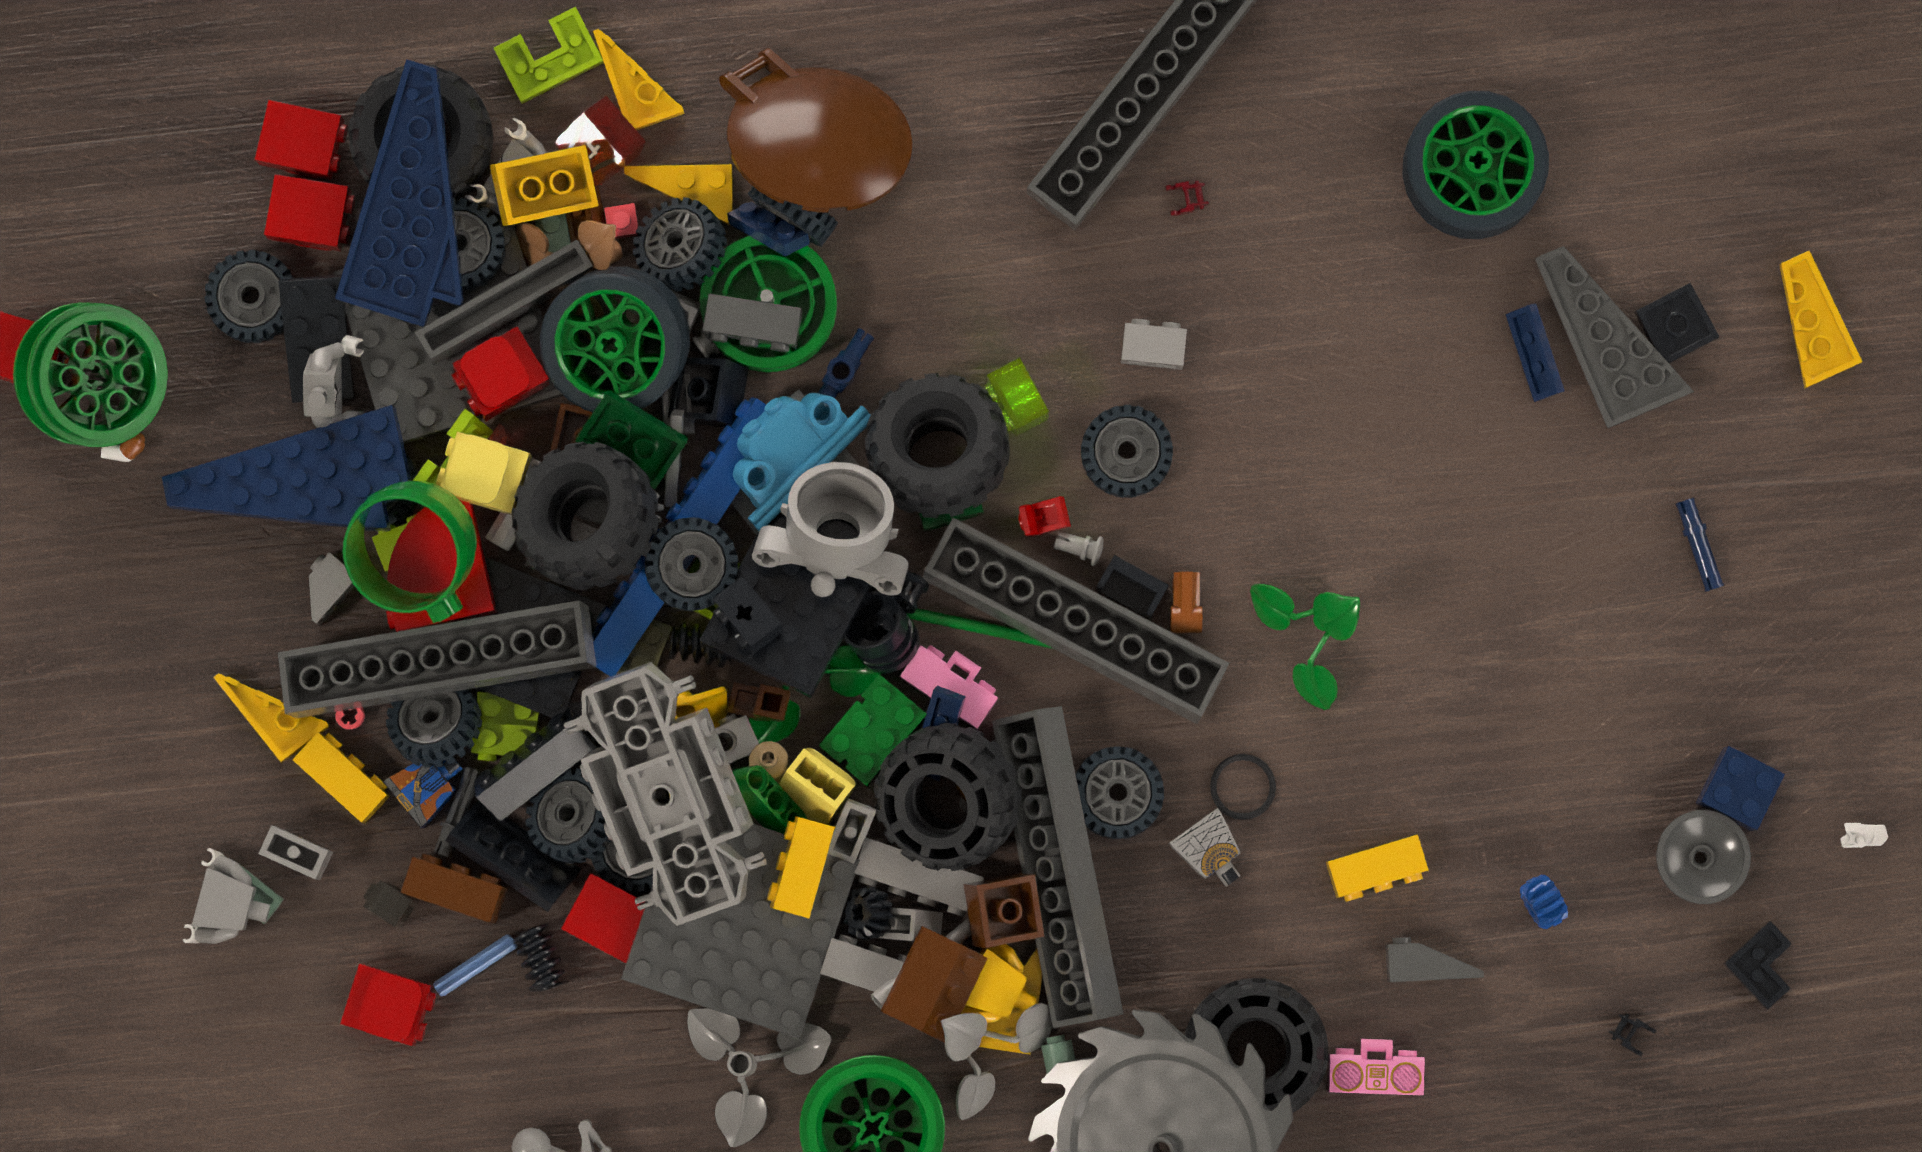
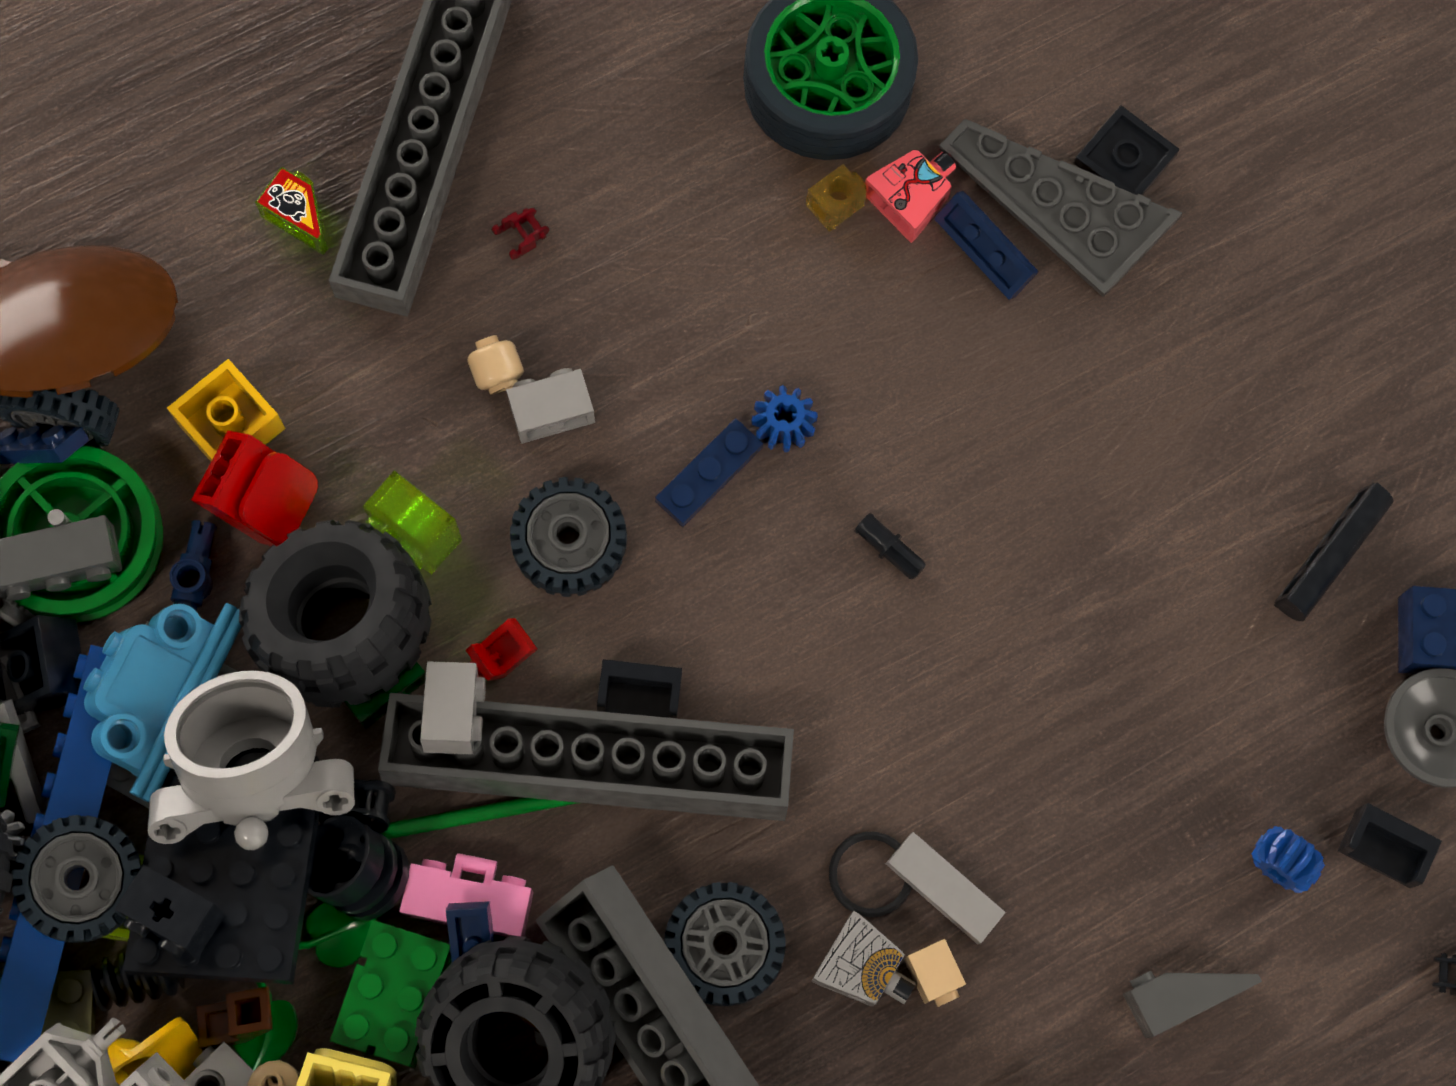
camera: 30 degrees left, 10 degrees down
(912, 260) = (224, 403): none -> yellow brick
(915, 328) = (256, 489): none -> red brick
(992, 549) = (451, 707): none -> light grey brick
(1023, 110) = (294, 207): none -> slope
(1080, 546) = (558, 668): light grey pin -> none
(1125, 298) = (495, 365): none -> tan head
(1186, 609) = (715, 693): dark orange piece -> none
(1250, 443) = (708, 472): none -> dark blue plate
(1257, 875) = (935, 973): none -> tan brick
(1291, 819) = (945, 888): none -> light grey tile
(1329, 418) = (781, 430): none -> blue gear
(1332, 613) = (894, 617): green plant -> none
(1360, 555) = (890, 546): none -> black axle
(1377, 868) = (1074, 903): yellow brick -> none
(1426, 275) = (832, 211): none -> clear yellow brick
(1497, 286) = (911, 190): none -> coral torso
(1623, 923) = (1389, 846): none -> black panel
(1688, 695) = (1334, 551): none -> black brick
(1699, 544) = (1264, 380): dark blue pin -> none
(1817, 326) = (1279, 101): yellow wing -> none

